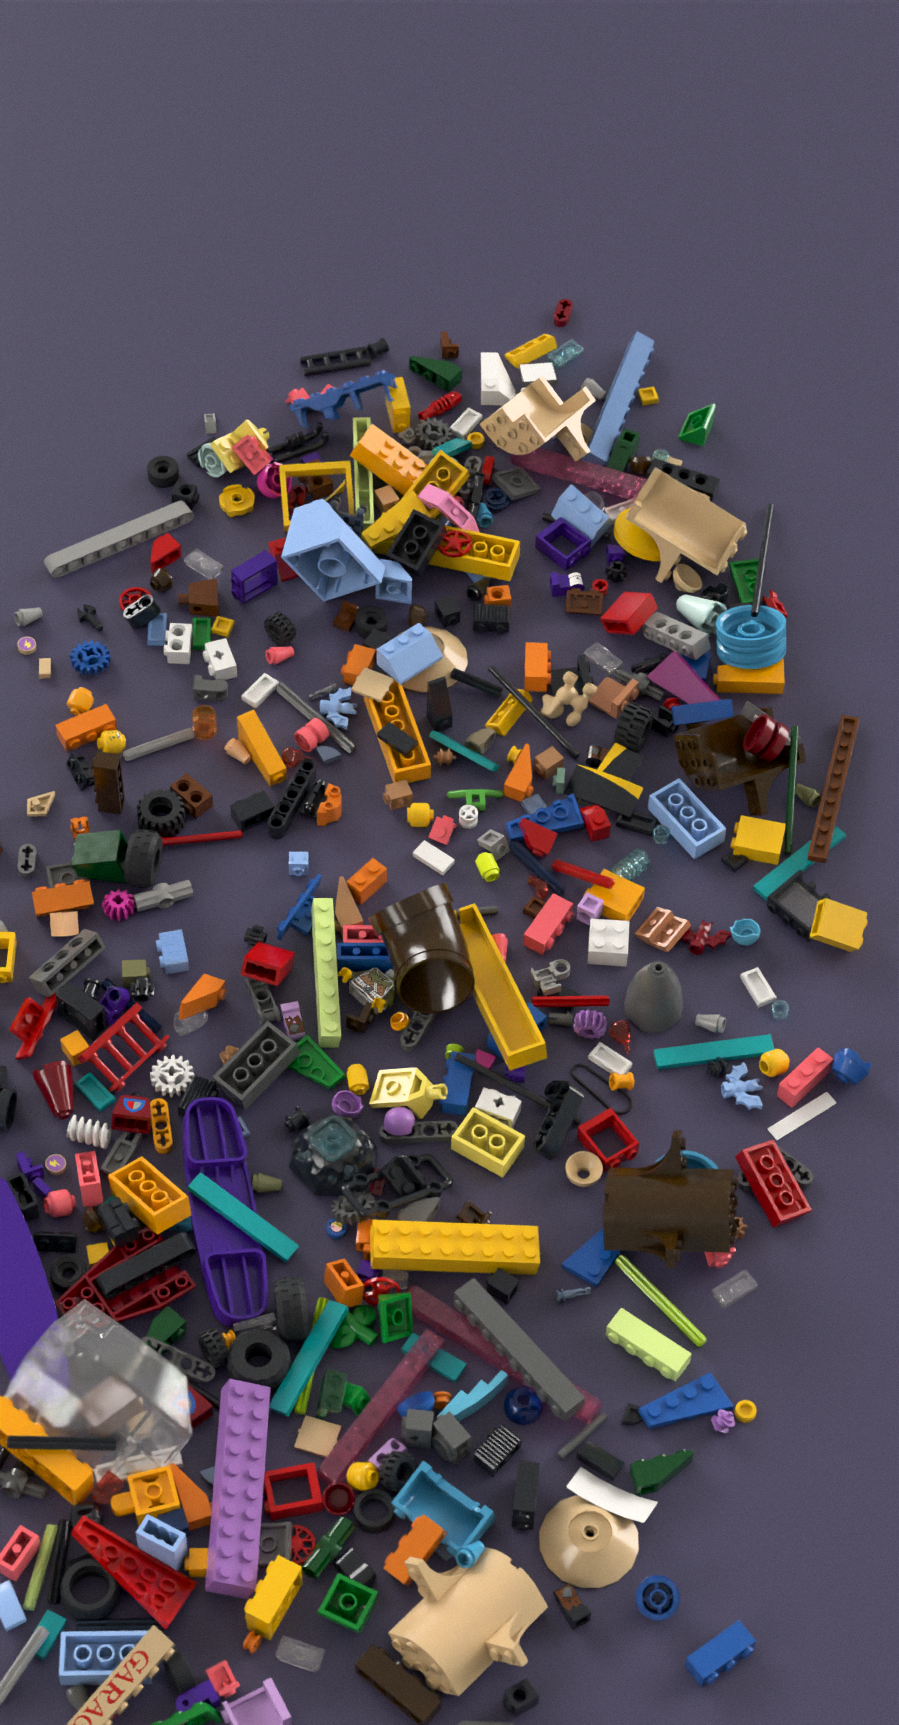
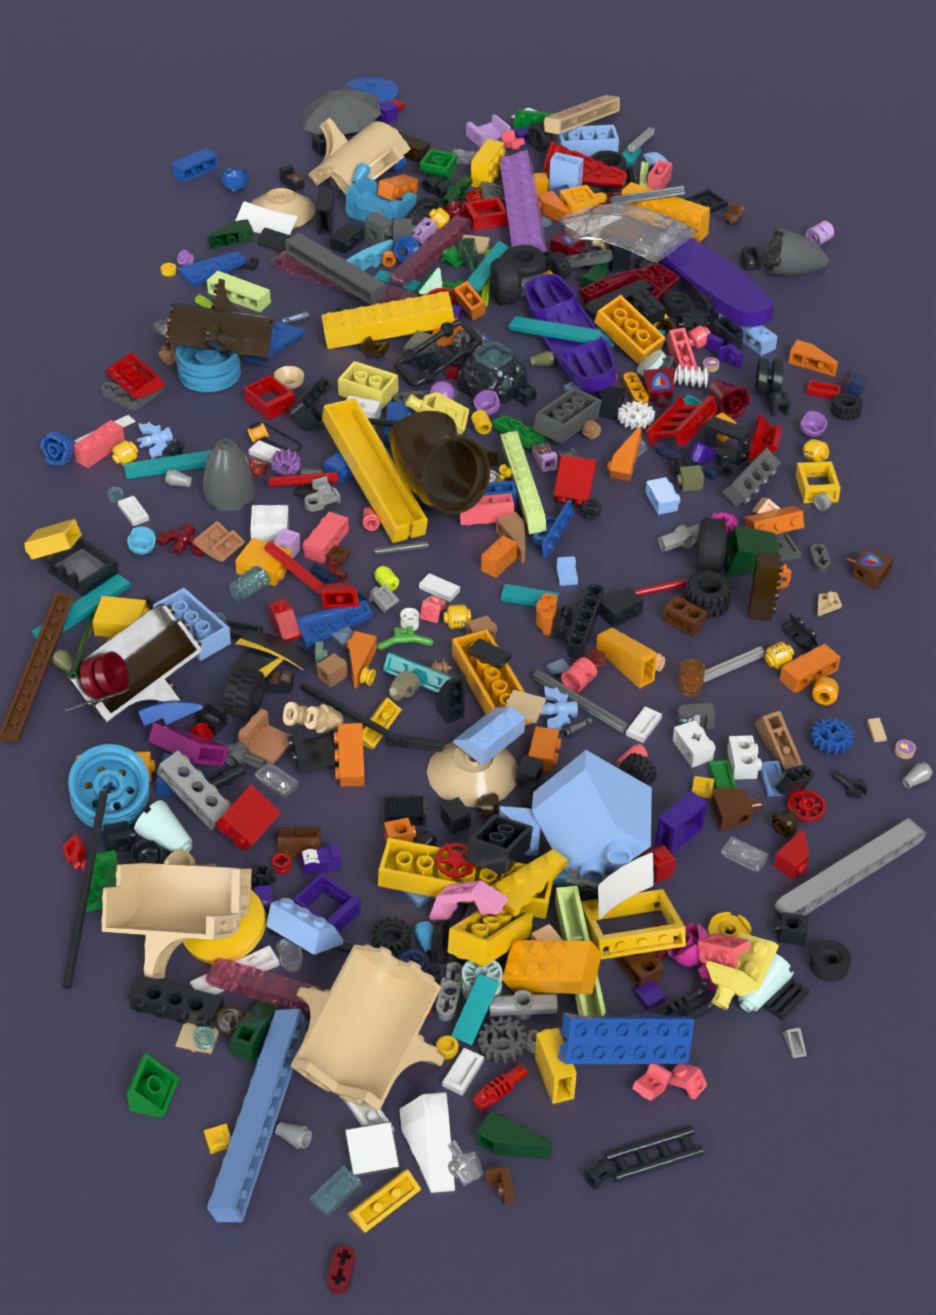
camera: 175 degrees right, 10 degrees down
(133, 1146) = (652, 361): none -> light aqua tile
(142, 657) = (778, 740): none -> medium nougat slope
(342, 839) = (523, 595): none -> teal tile
(472, 356) = (465, 1165): none -> clear piece
(511, 510) = (388, 928): none -> black tyre

